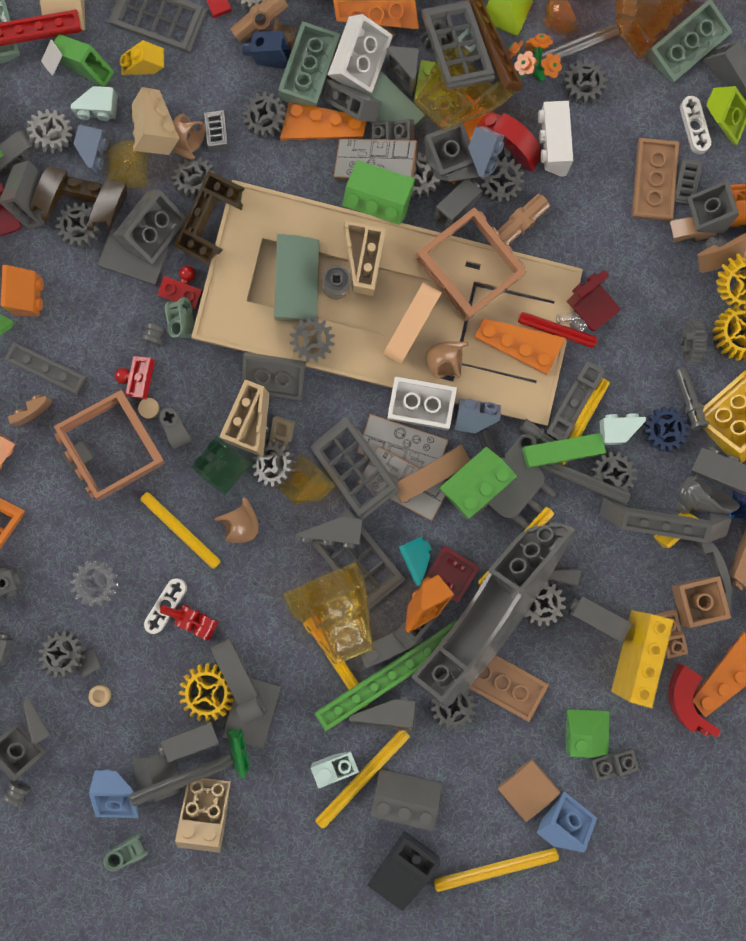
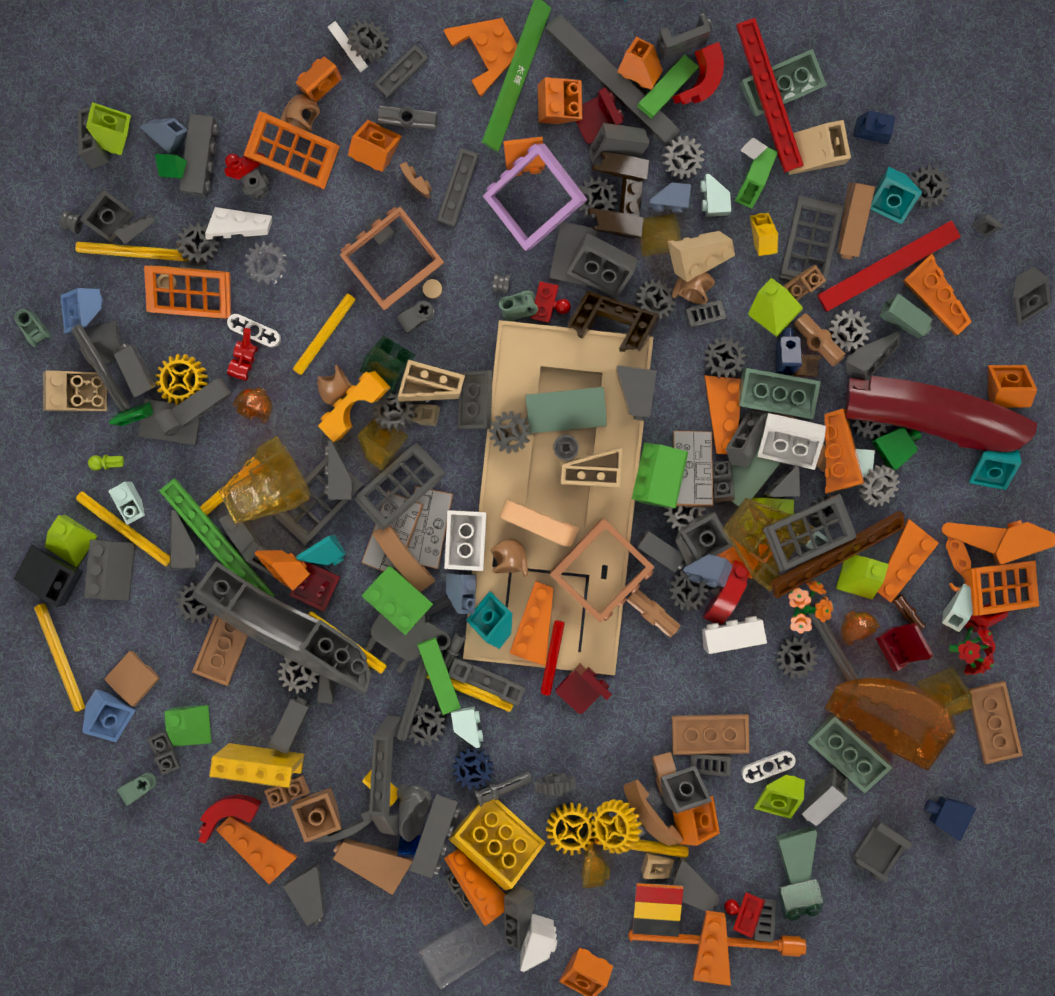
camera: 80 degrees right, 5 degrees up
(39, 309) = (577, 196): none -> lavender window
(44, 611) = (232, 222): none -> white wing
(59, 732) = (129, 251): none -> yellow axle
(105, 712) = (151, 291): none -> orange piece
(137, 378) = (460, 275): red plate -> none
(198, 26) = (805, 282): none -> medium nougat slope
(219, 57) = (774, 307): none -> lime slope
(244, 615) = (253, 403): none -> clear orange cylinder
(245, 484) = (338, 422): none -> light orange arch
(285, 201) = (637, 390): none -> dark grey slope
(286, 799) = (96, 462): none -> lime axle
(367, 841) = (69, 539): none -> lime slope
(510, 386) = (492, 620): none -> teal slope
(573, 320) = (564, 670): clear arm -> none
(652, 801) = (135, 789): none -> sand green piece

